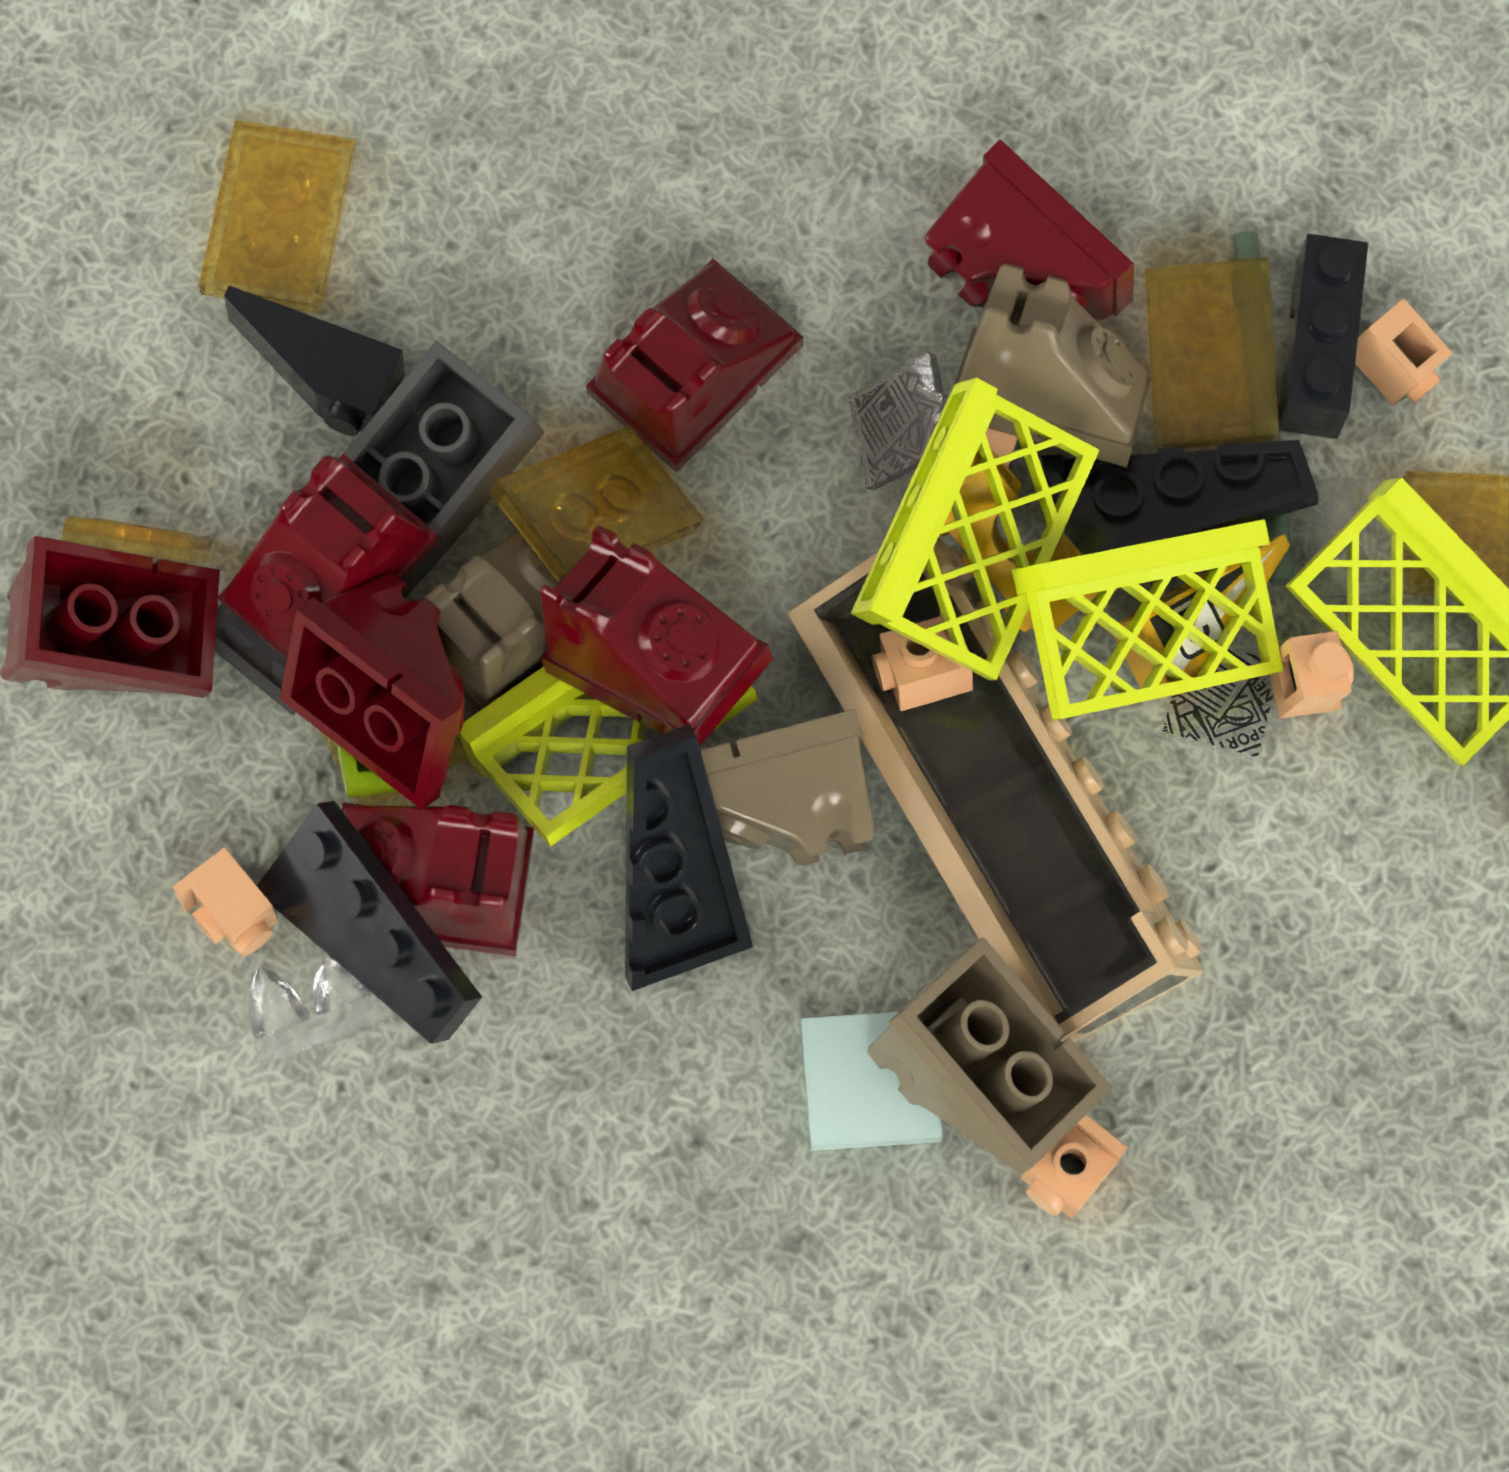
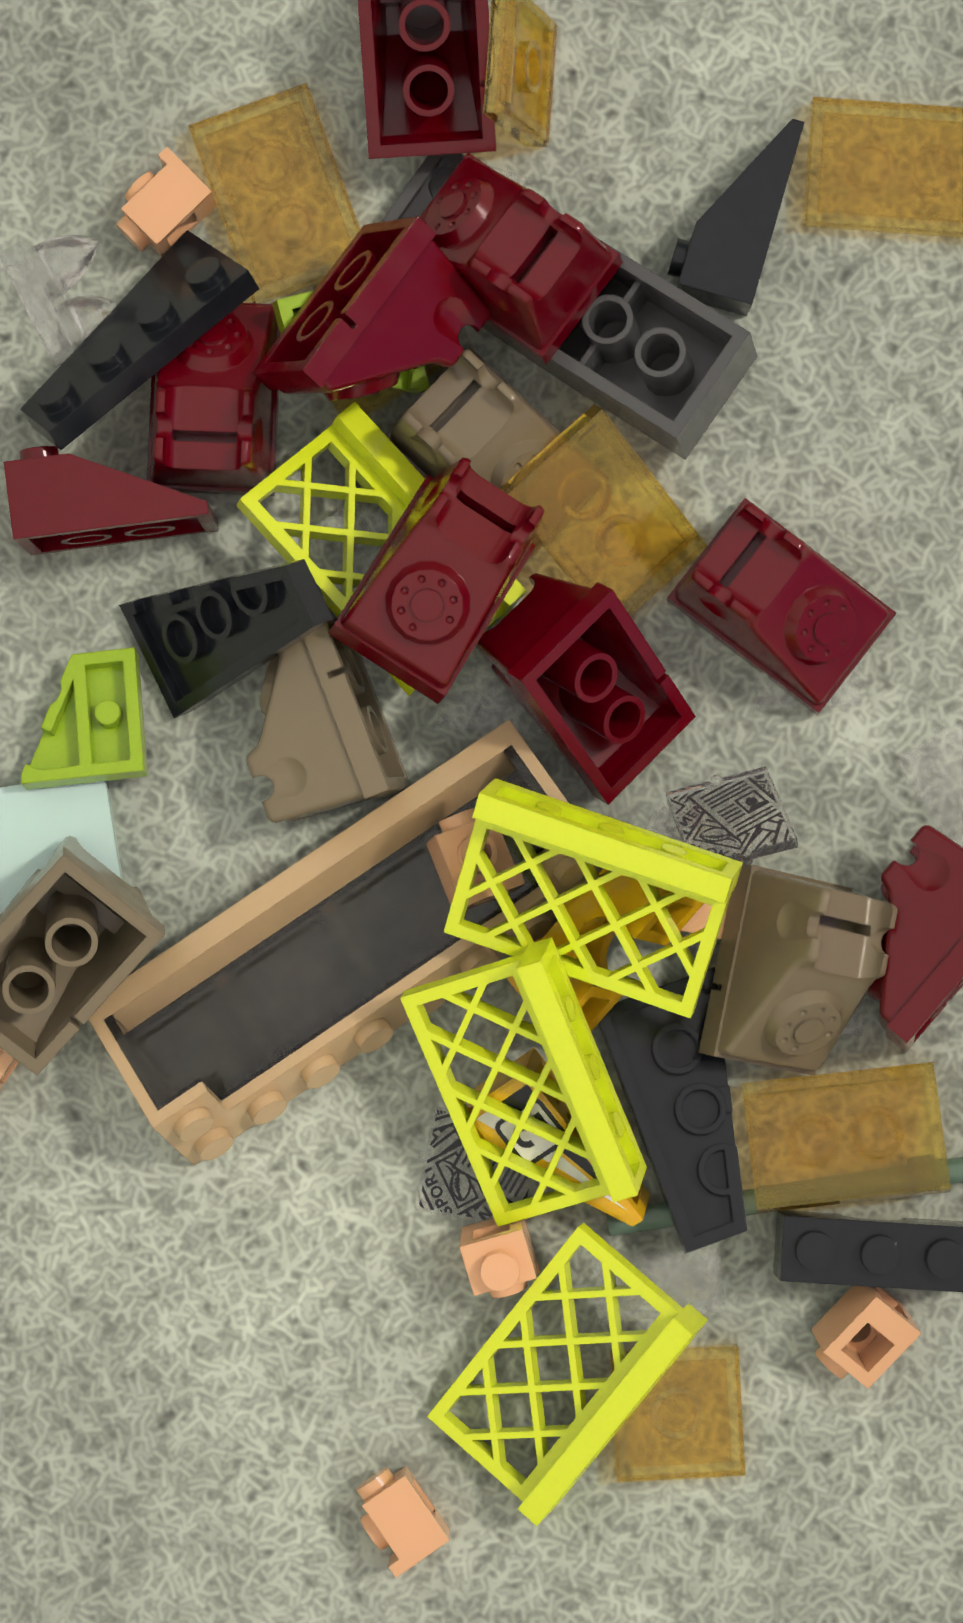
camera: 90 degrees right, 15 degrees up
(221, 791) = (277, 190): none -> clear yellow tile
(527, 999) = (80, 504): none -> dark red slope
(753, 1021) = (93, 725): none -> lime wing
(758, 532) = (587, 681): none -> dark red piece

